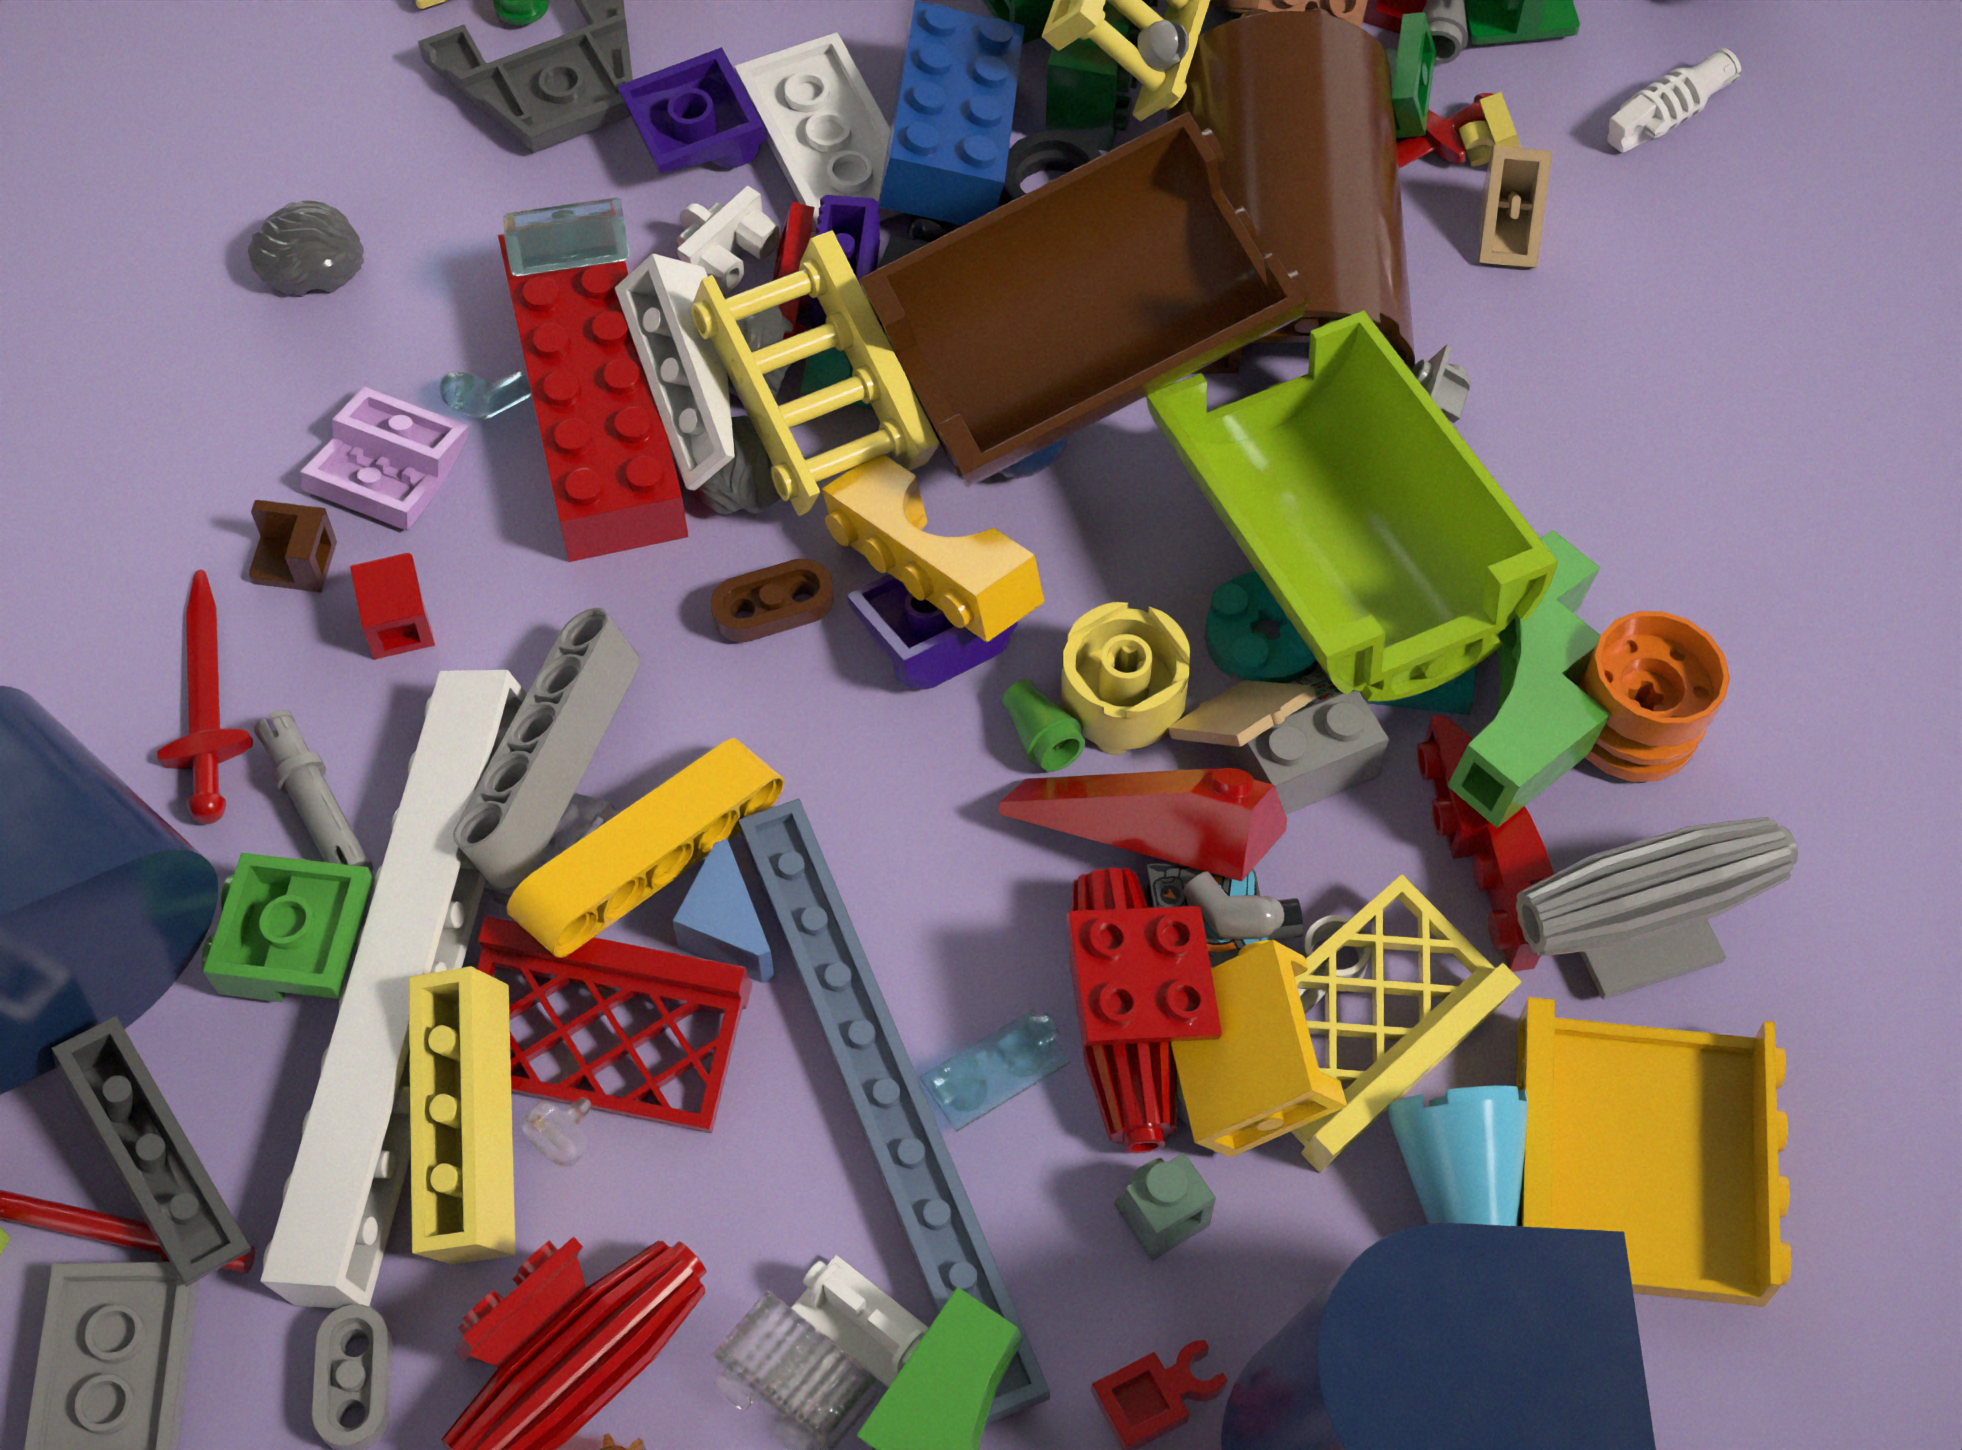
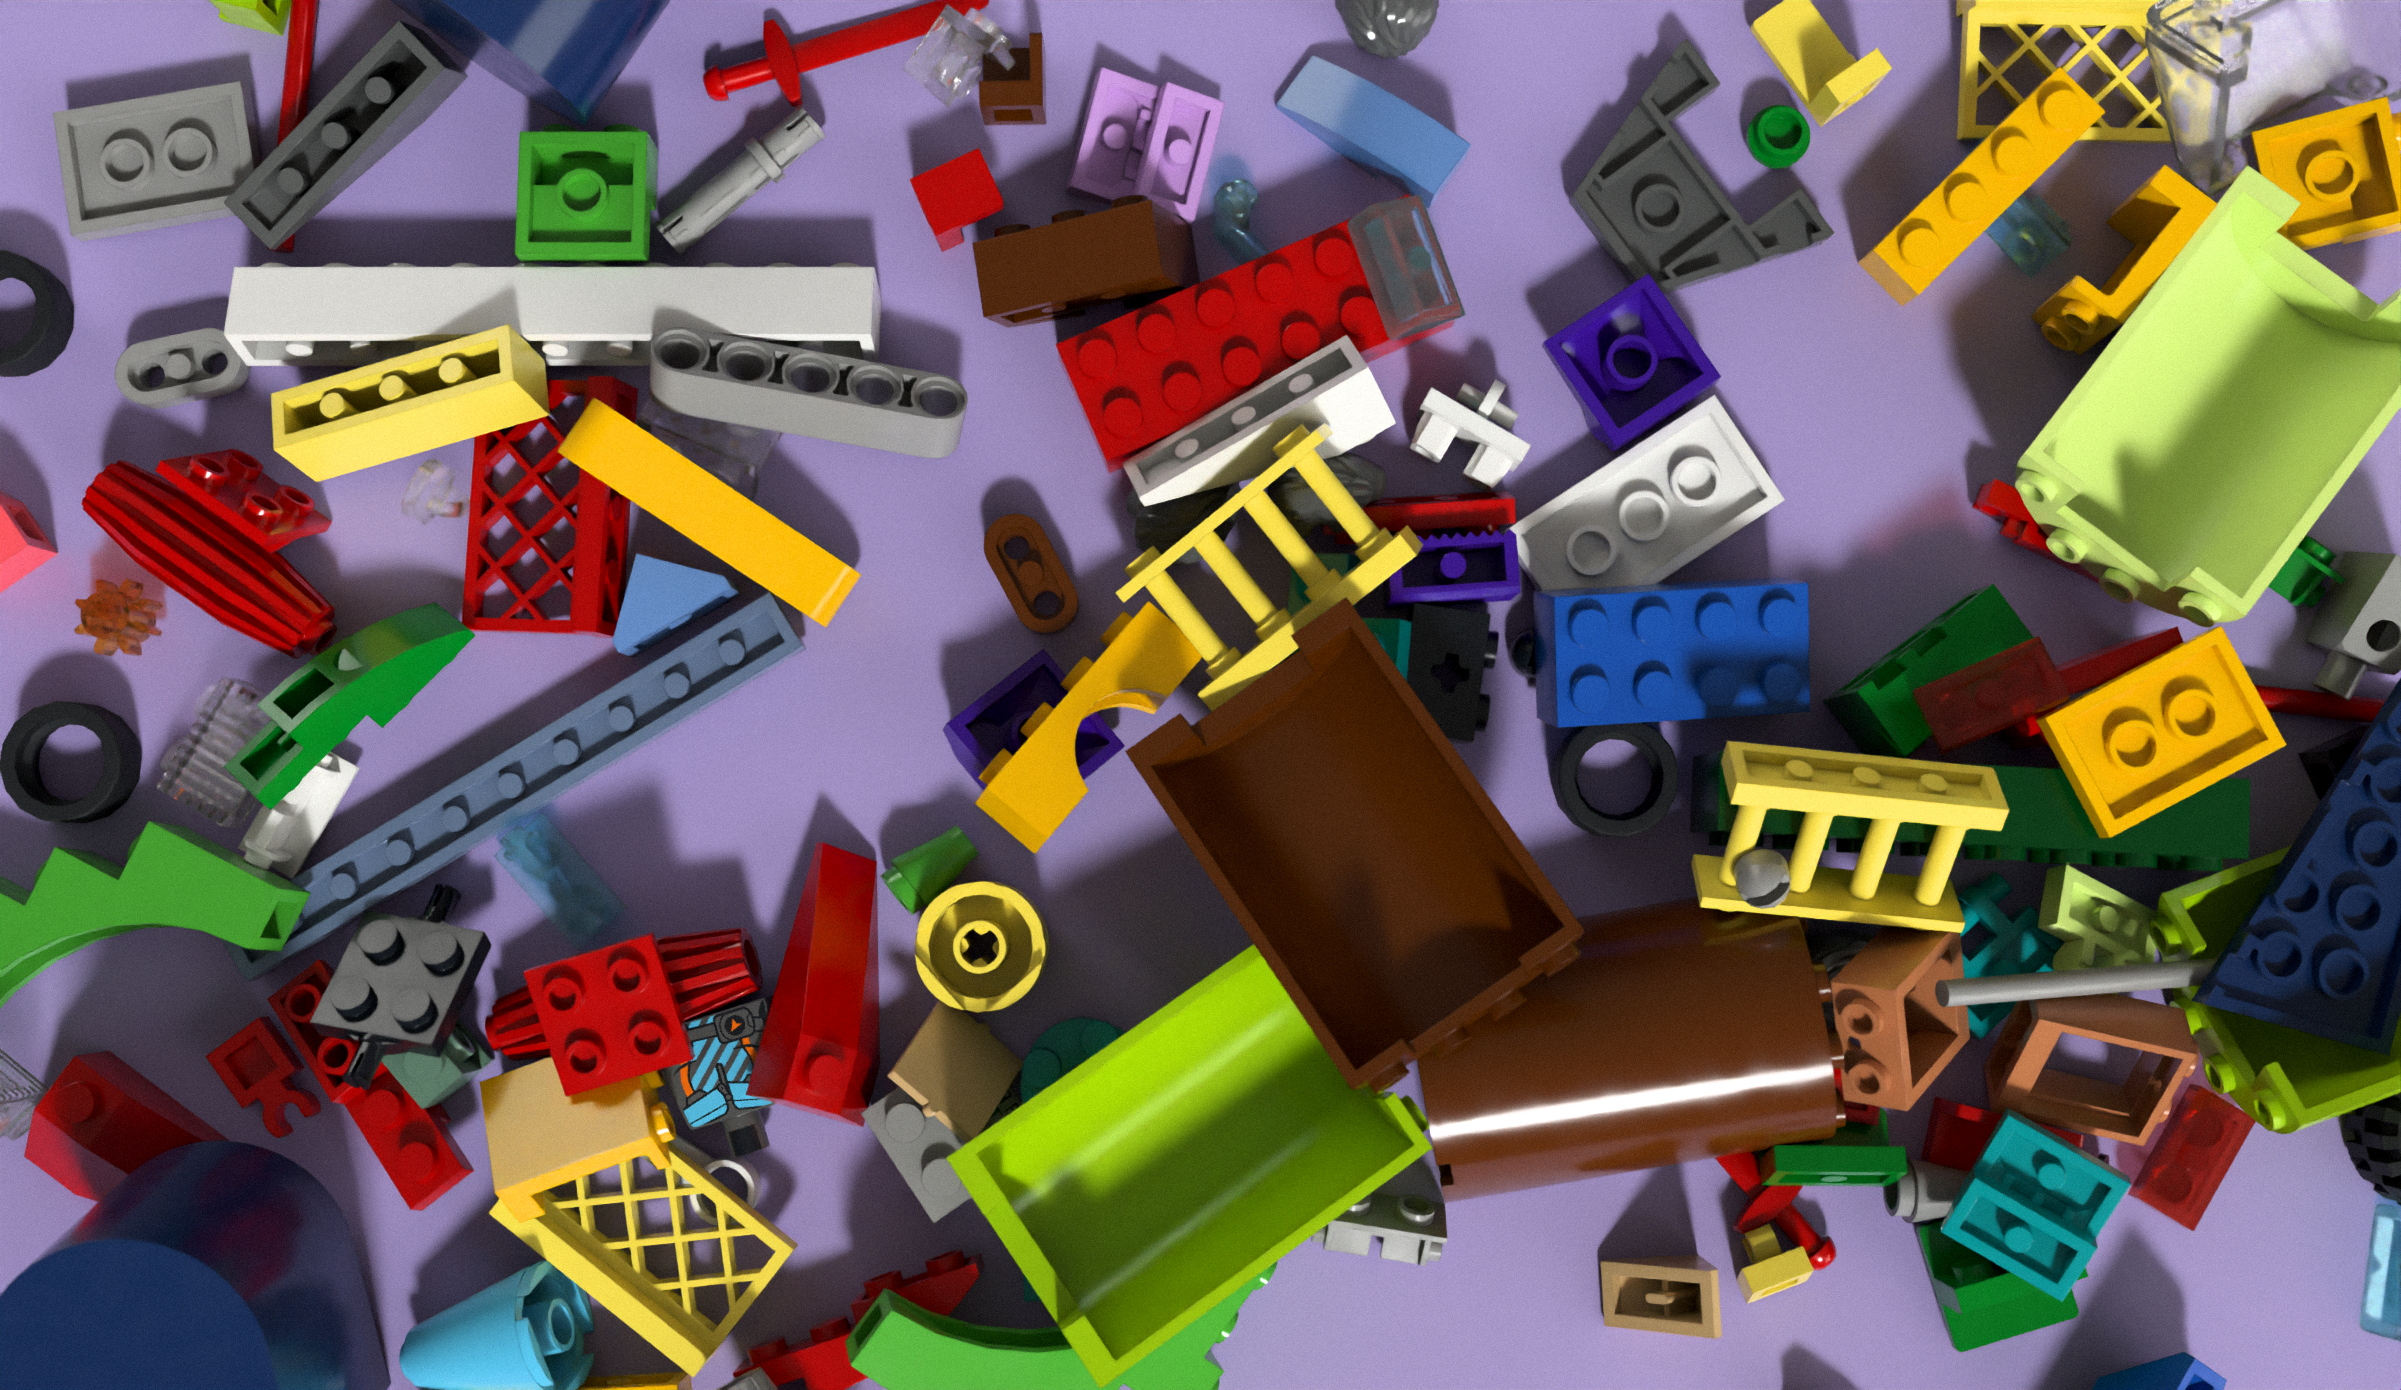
camera: 75 degrees right, 25 degrees up
(254, 561) = (951, 52): none -> clear bracket
(426, 272) = (1374, 129): none -> medium blue slope
(485, 502) = (1084, 262): none -> reddish brown wedge
(760, 1230) = (328, 696): none -> green slope
(1080, 1205) = (401, 985): none -> plate
(1182, 1276) = (405, 1138): none -> red slope
(1234, 915) = (706, 1091): light grey arm -> none

